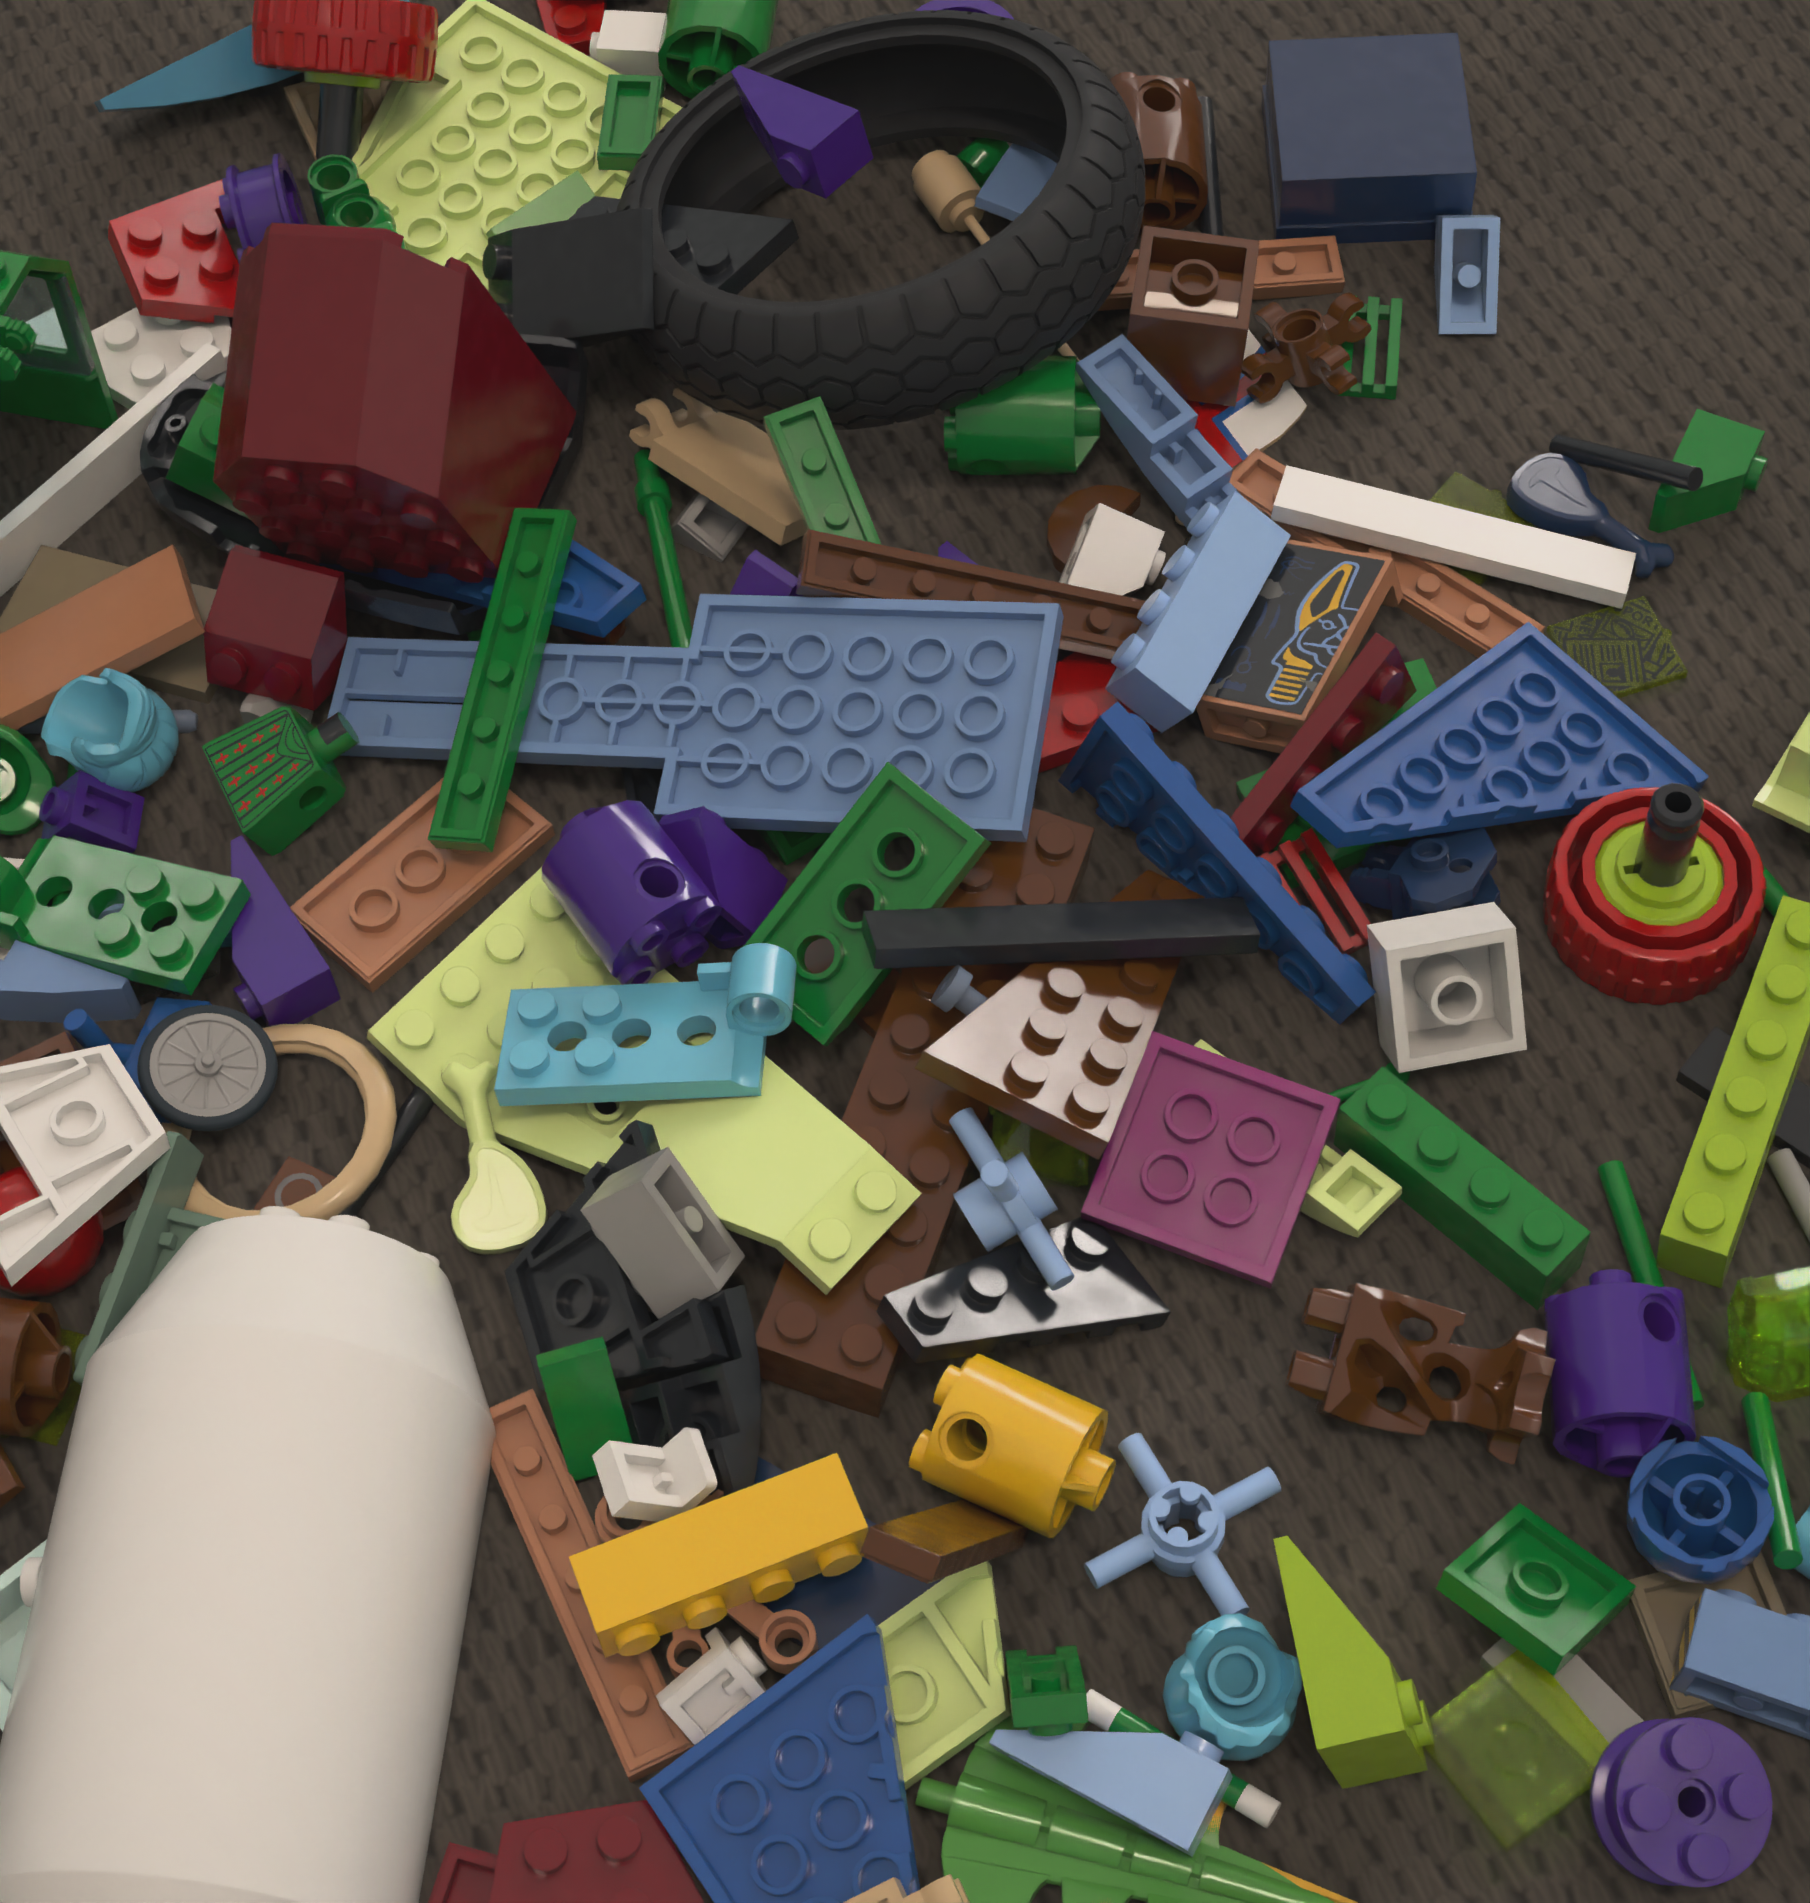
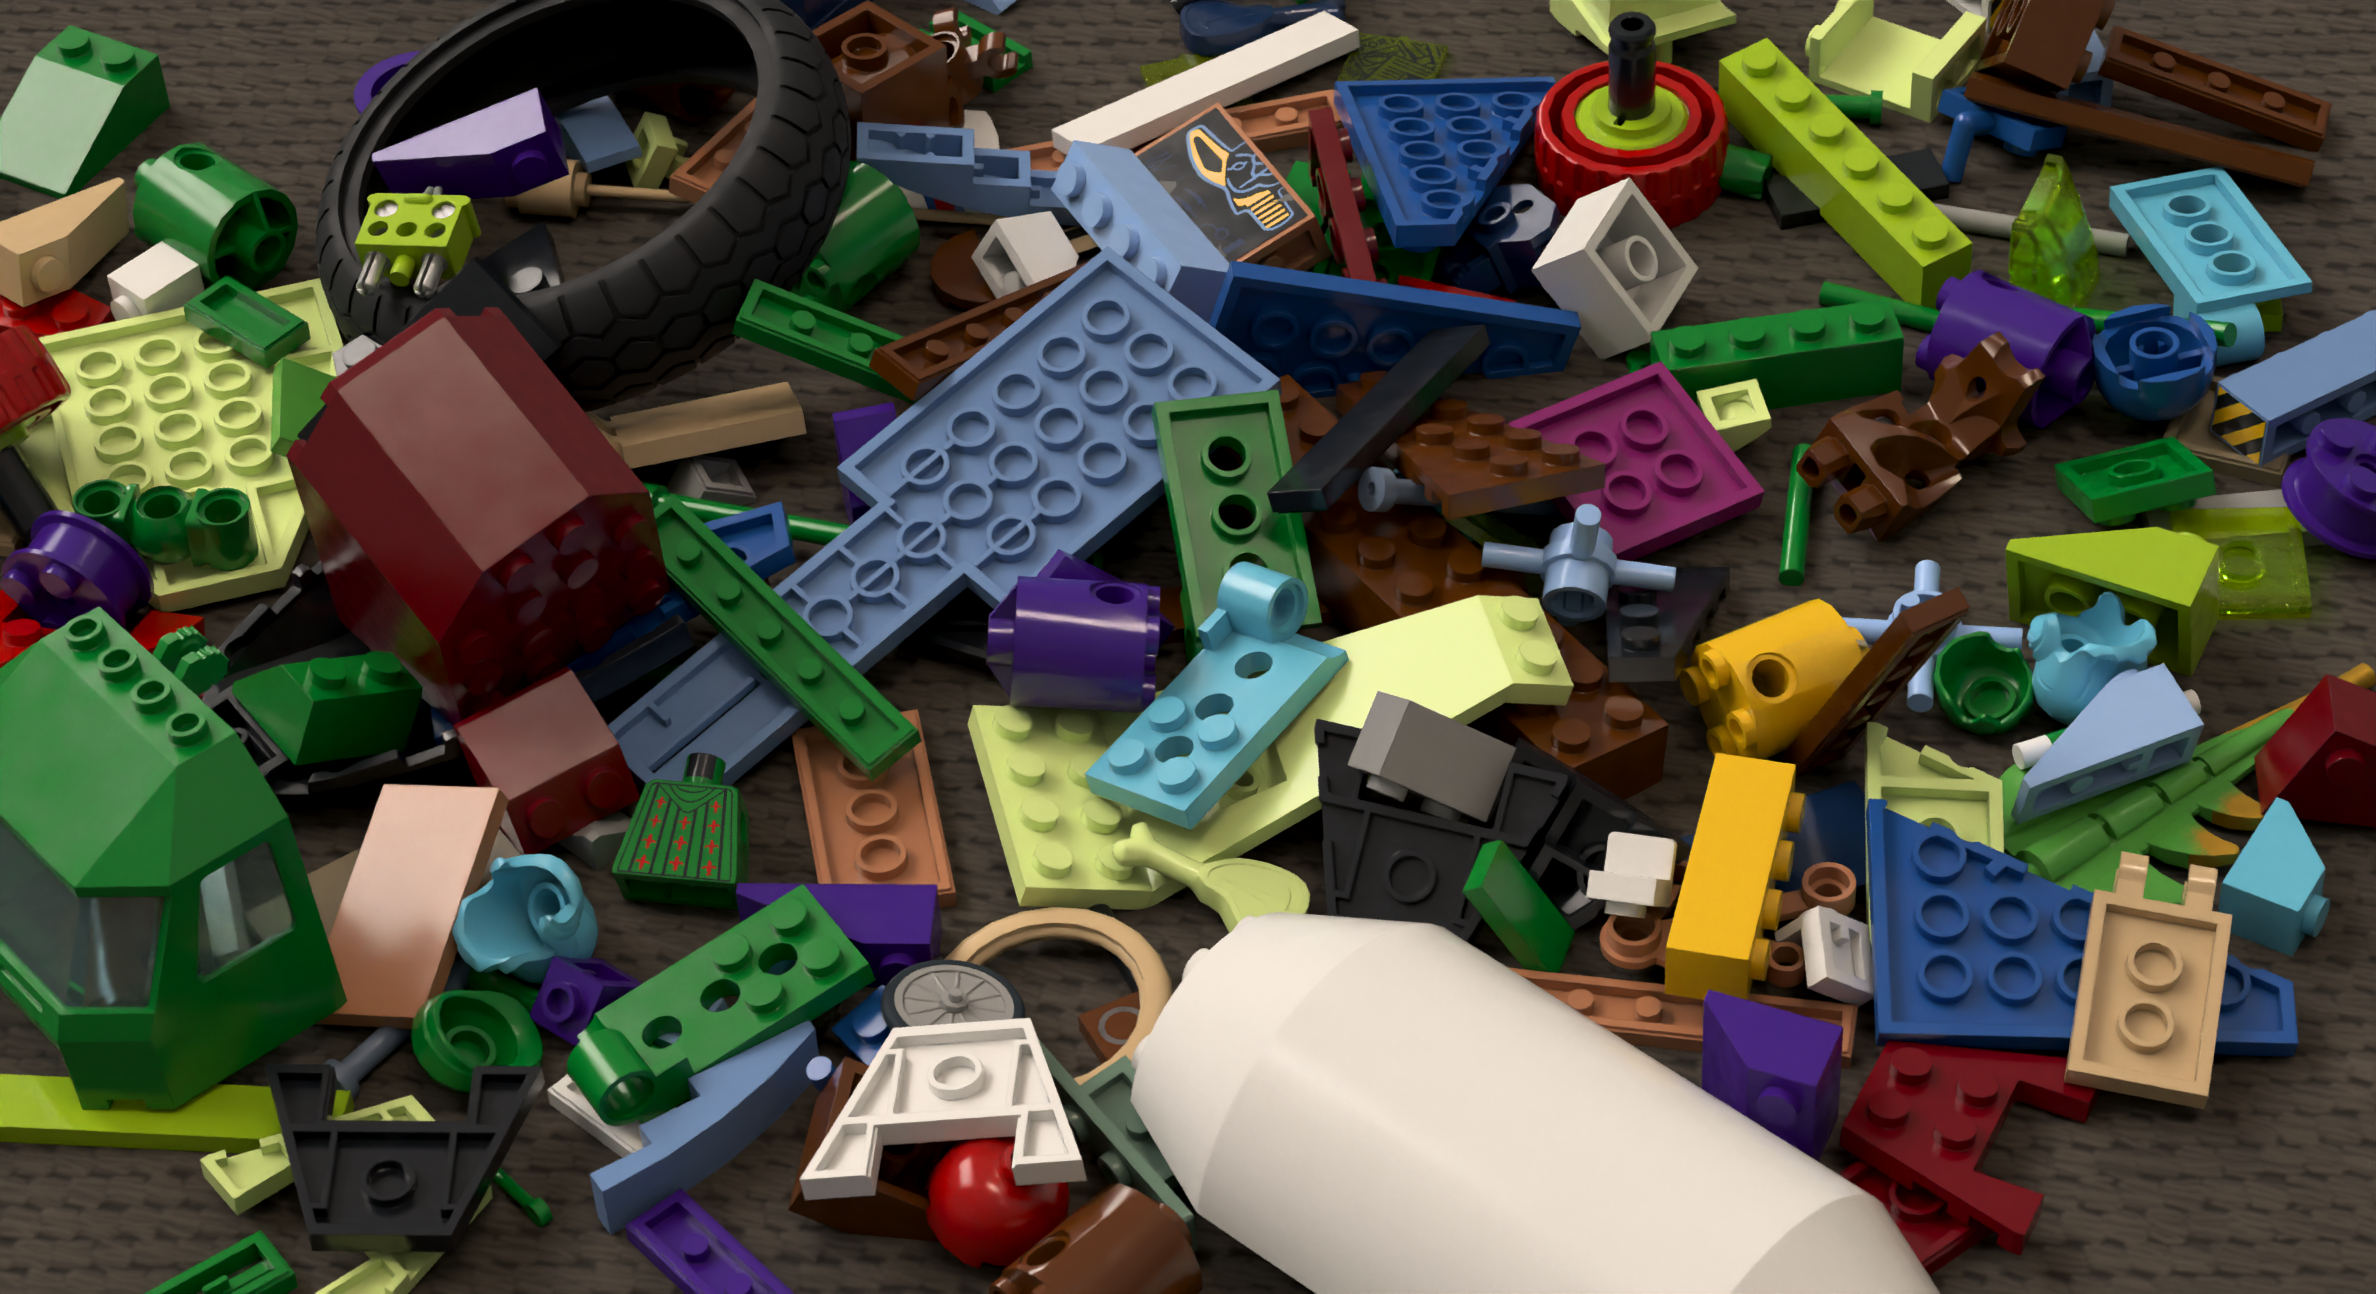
camera: 55 degrees left, 15 degrees down
(502, 1738) = (1773, 1068): none -> dark purple slope
(679, 158) = (414, 238): none -> lime piece
(1046, 1690) = (2026, 731): green plate -> none
(1153, 1613) = (1983, 684): none -> green hair
(1267, 1336) = (1796, 524): none -> green bar
(1711, 1003) = (1745, 172): none -> green hose

